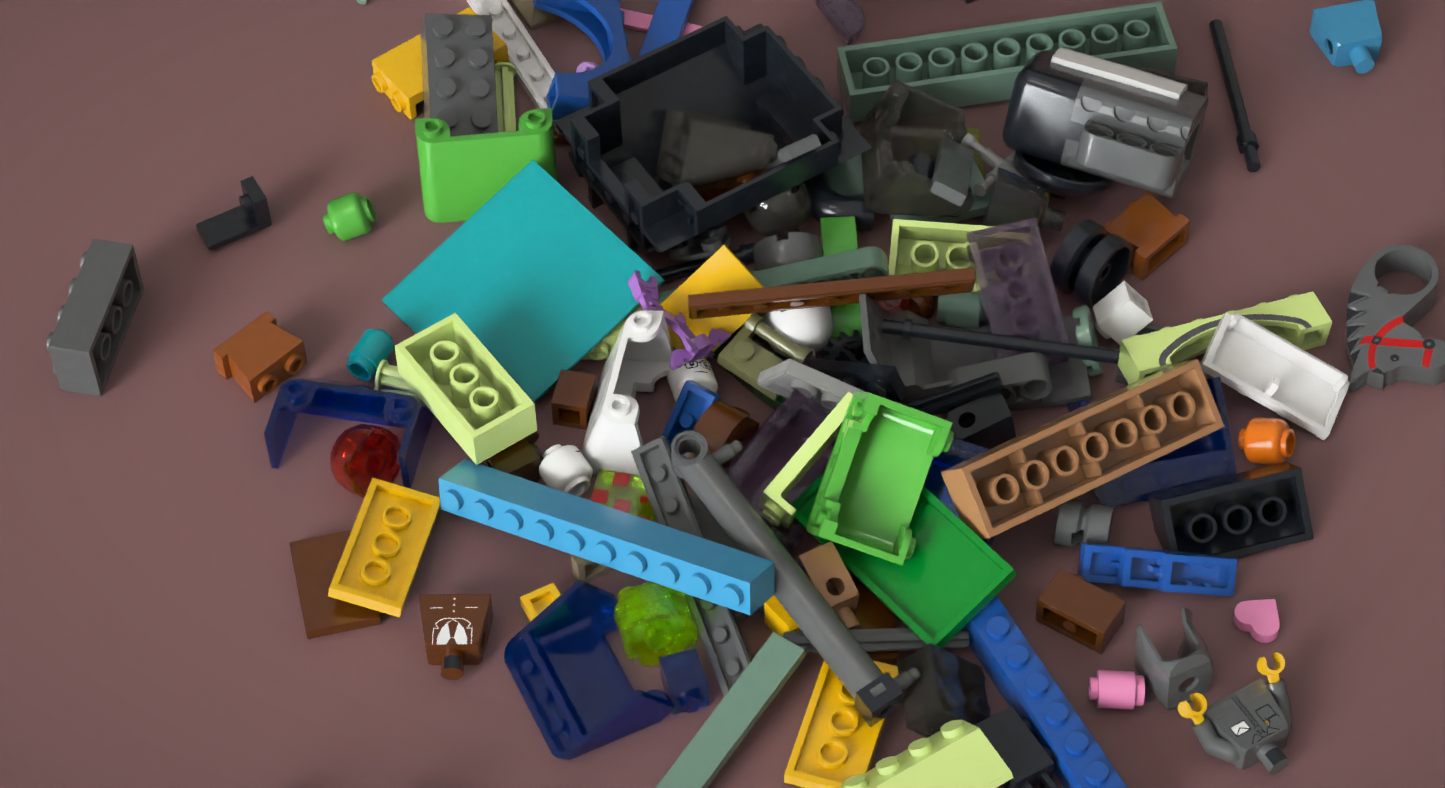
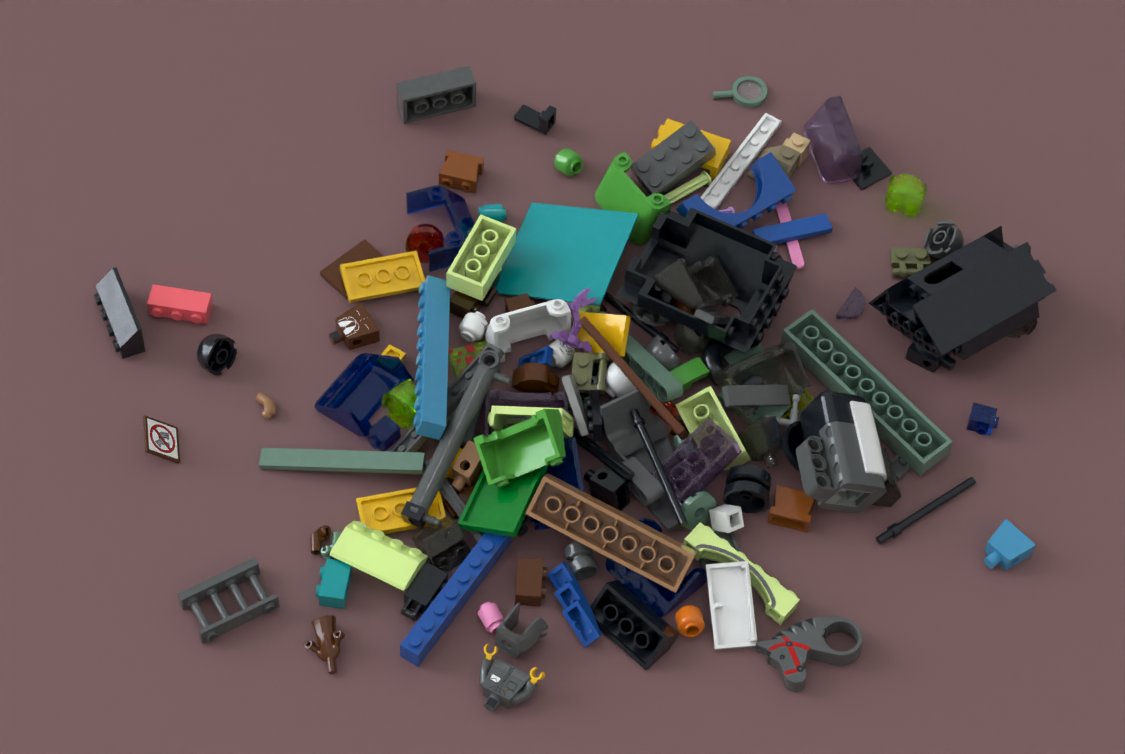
camera: 55 degrees right, 5 degrees up
(1258, 618) = (577, 664): bright pink tile -> none

